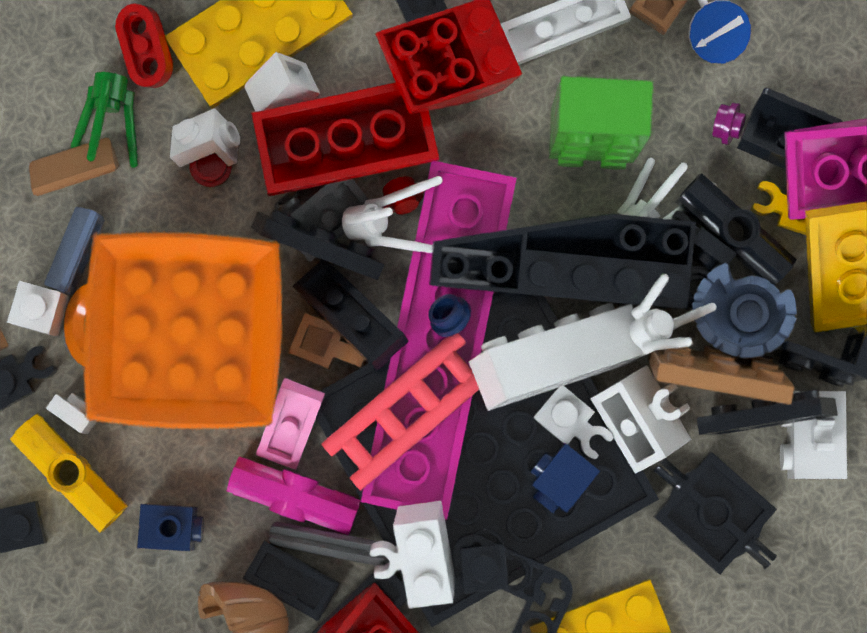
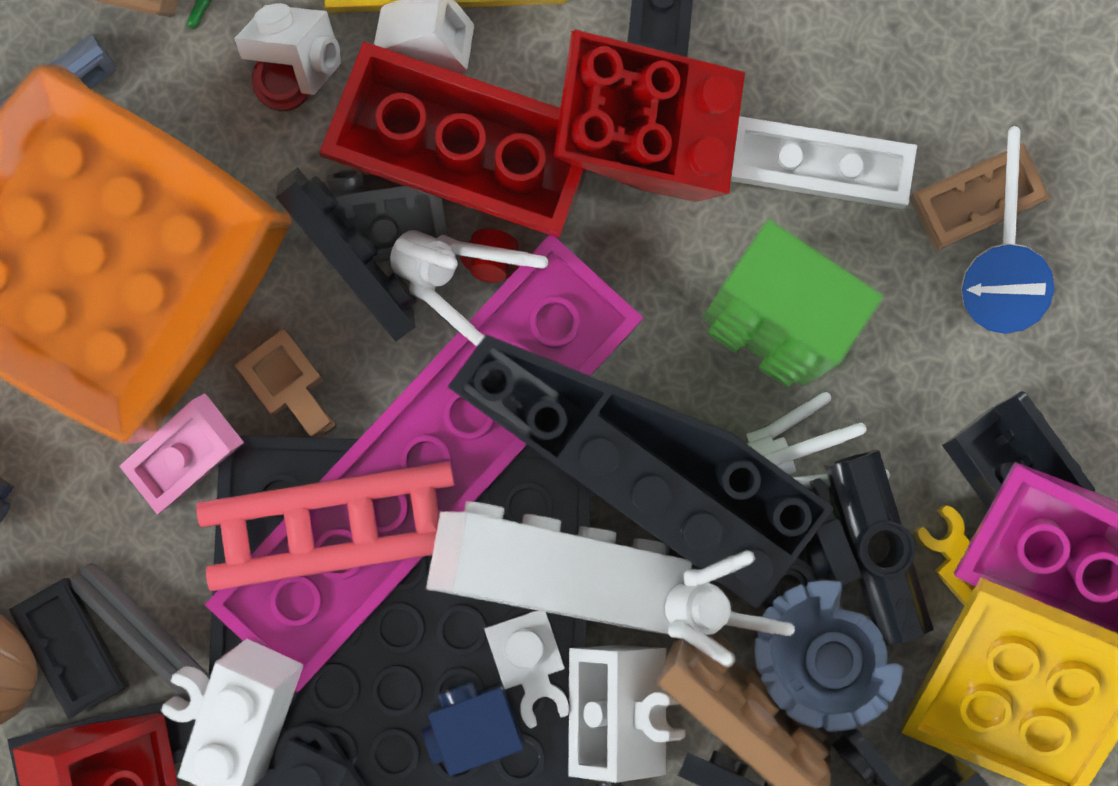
camera: 30 degrees right, 0 degrees up
(293, 495) = (133, 544): dark pink piece -> none
(350, 314) = (336, 365): black plate -> none
(449, 315) = (452, 438): dark blue plate -> none
(728, 123) = (950, 408): magenta plate -> none

